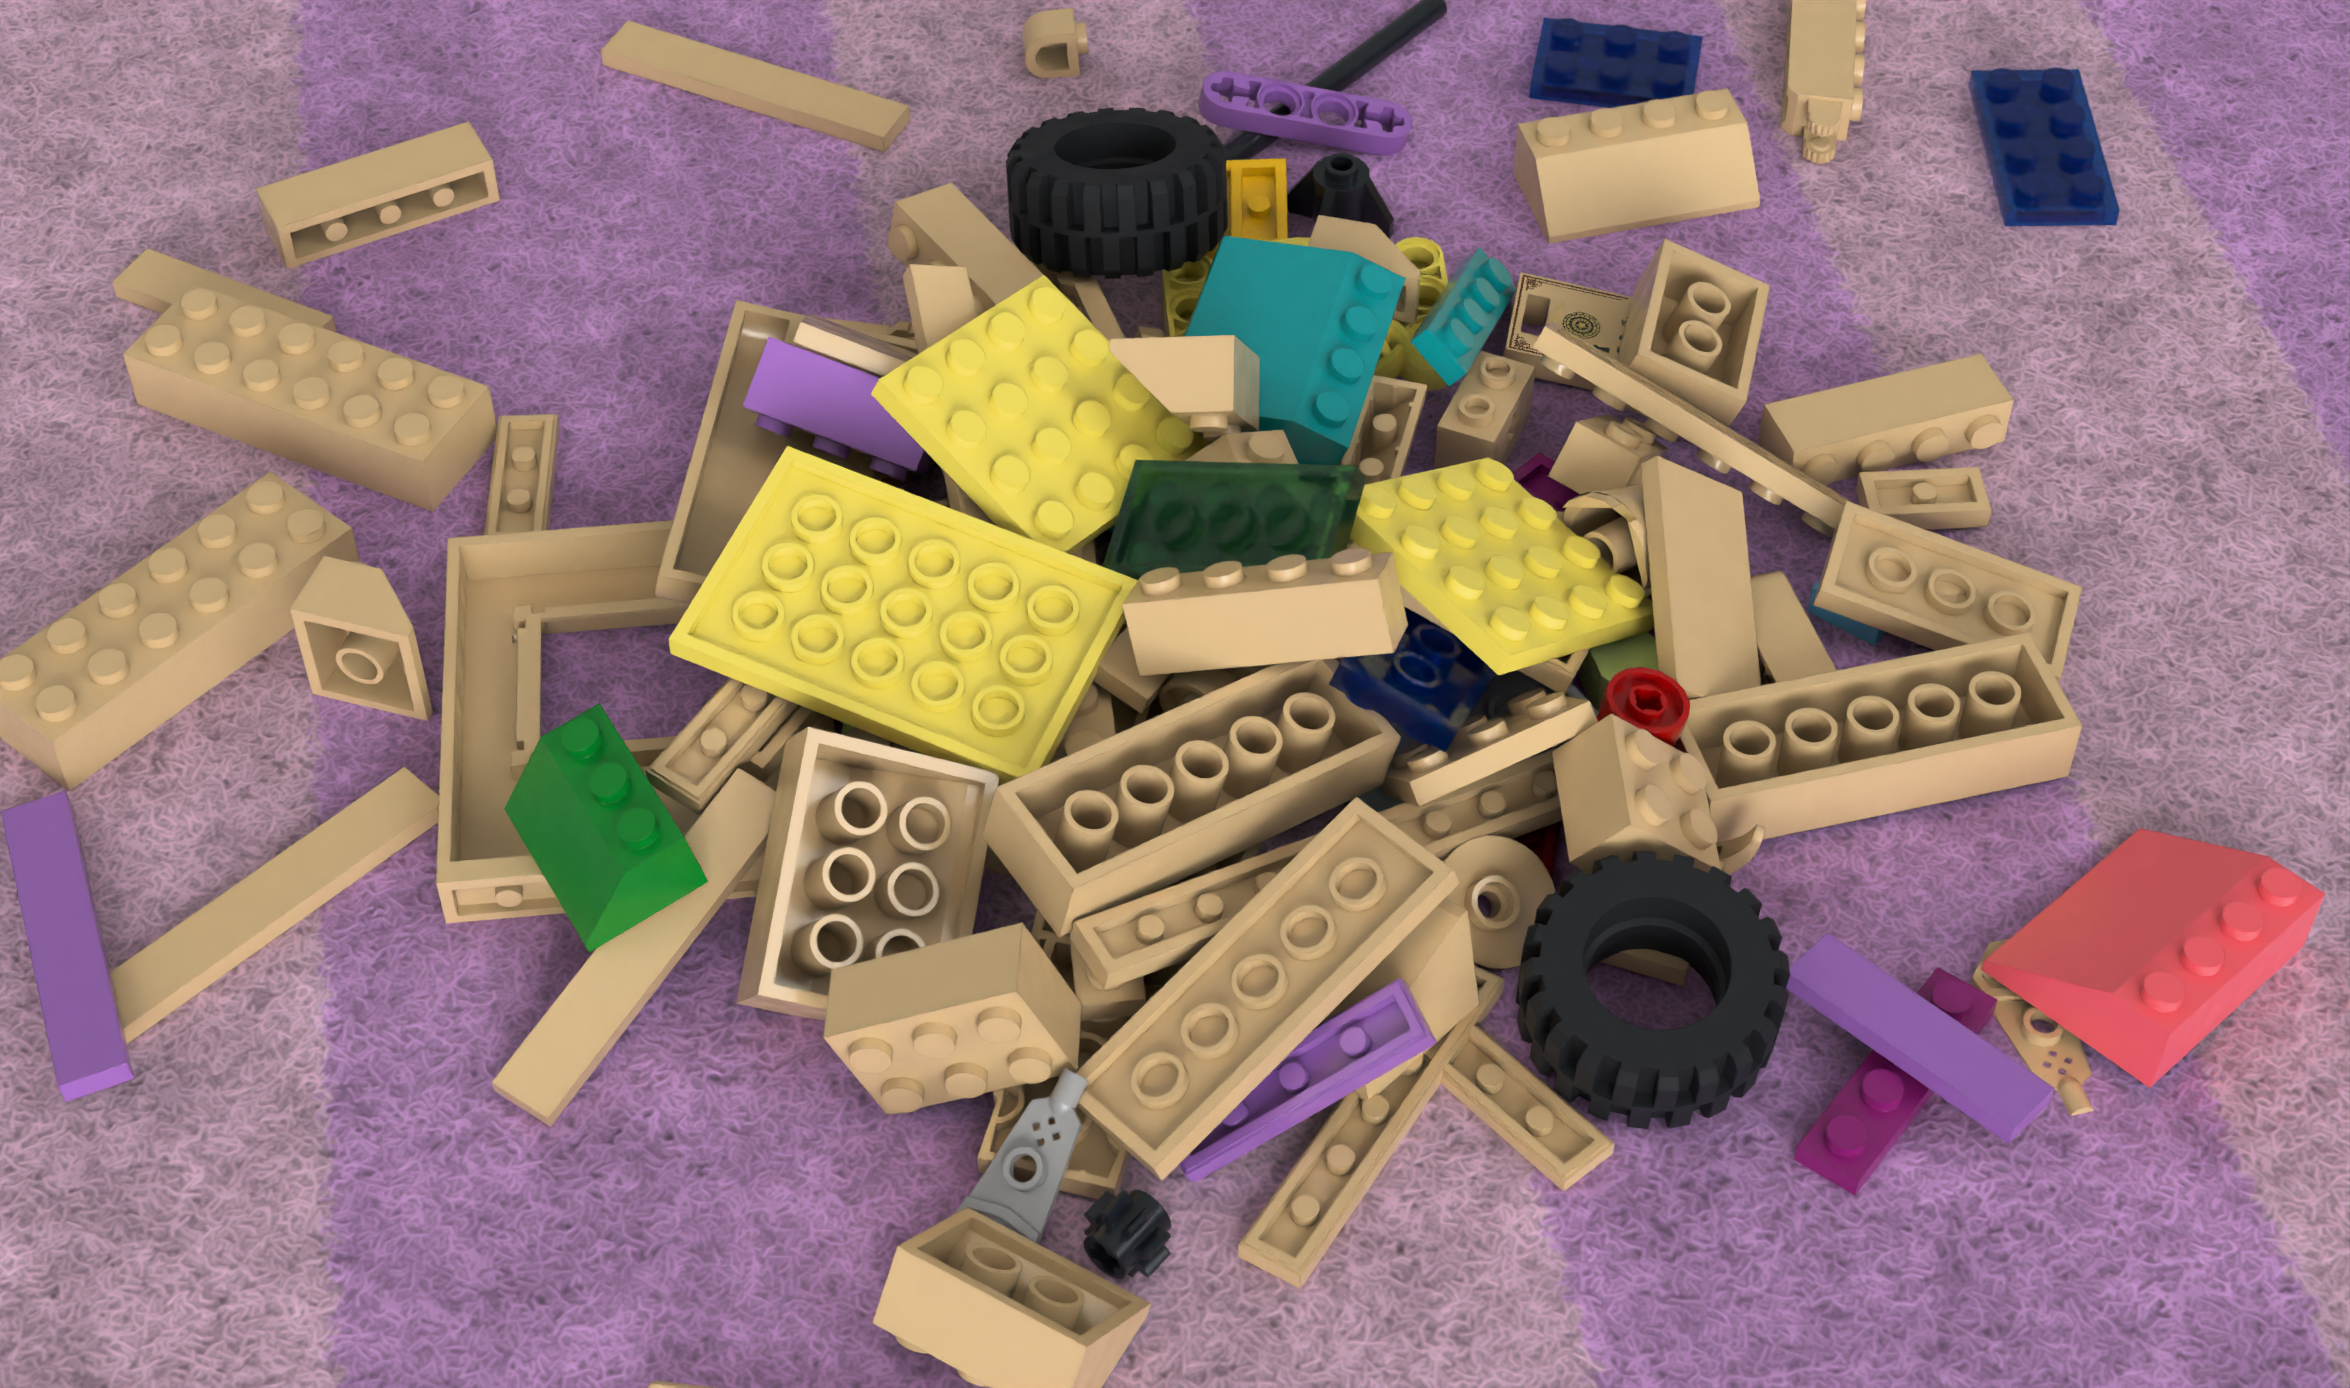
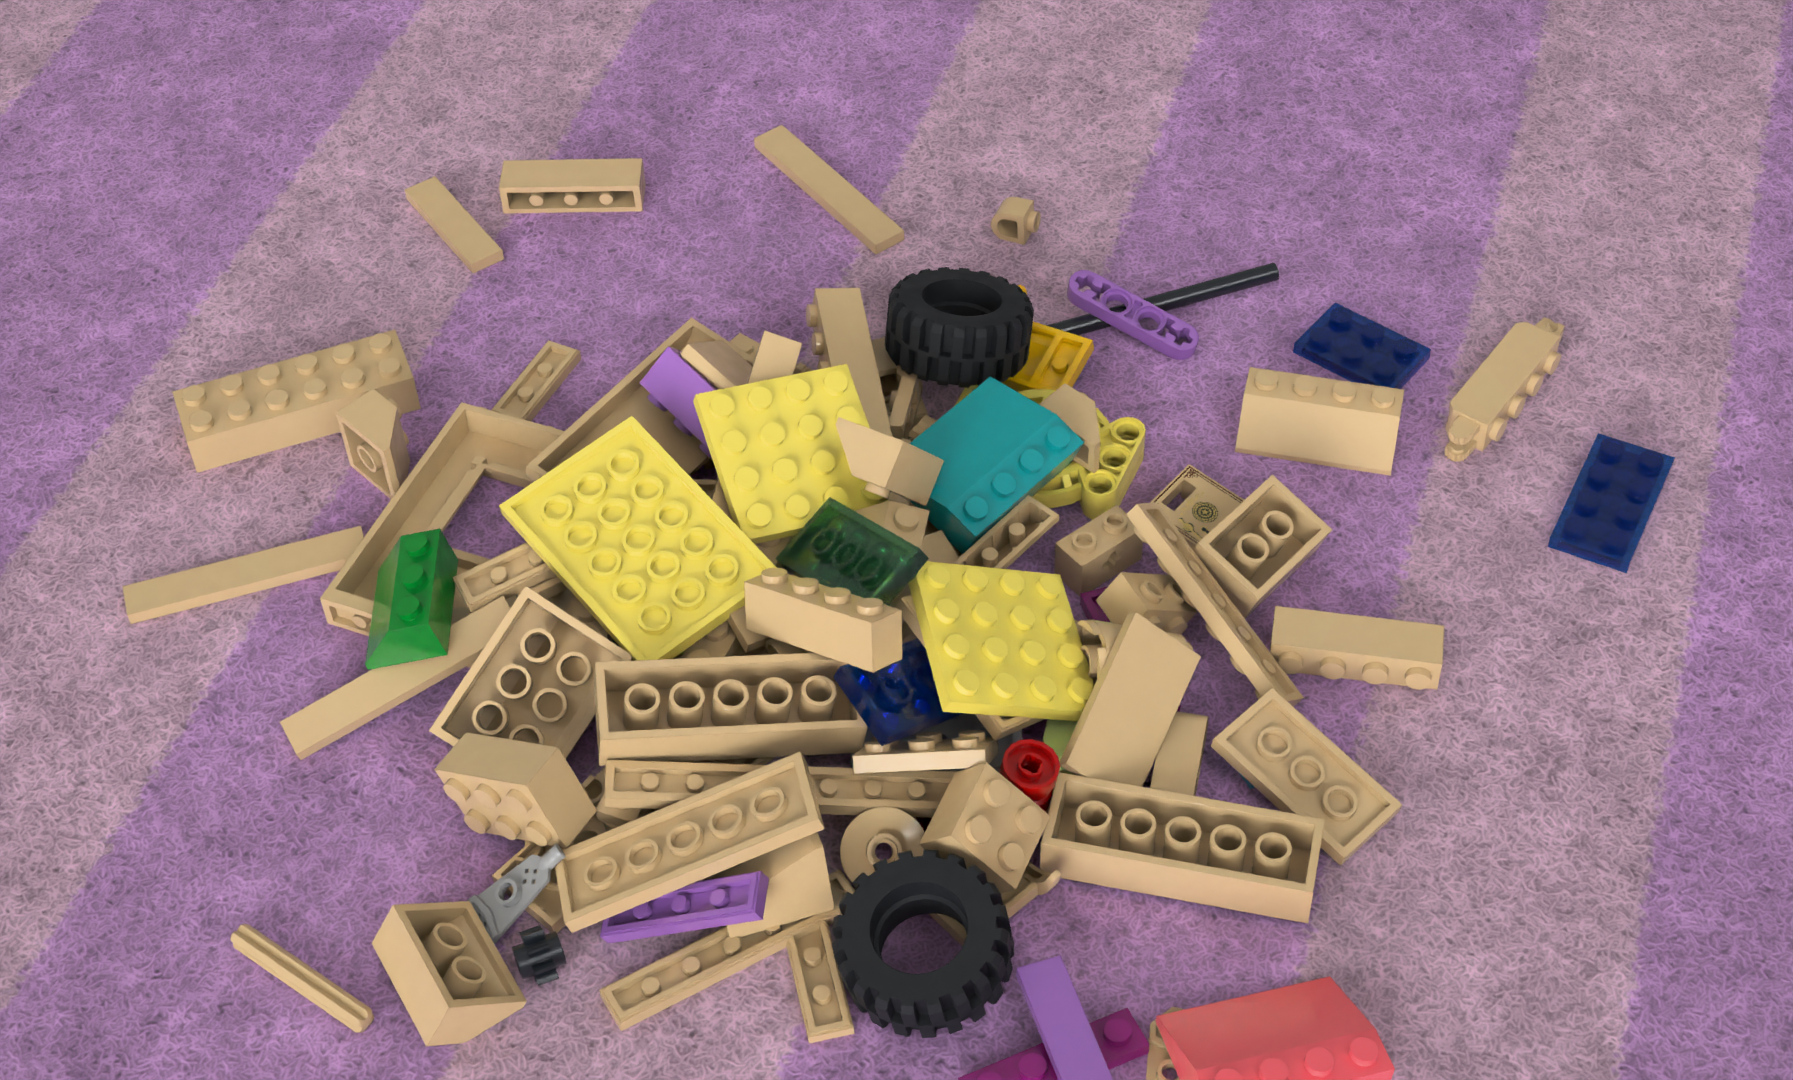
camera: 30 degrees right, 0 degrees up
(66, 947) = (130, 558): medium lavender tile -> none
(312, 396) = (457, 294): tan brick -> none
(1340, 189) = (1115, 378): black brick -> none
(1464, 315) = (1123, 479): teal plate -> none
(1928, 496) = (1346, 707): tan plate -> none

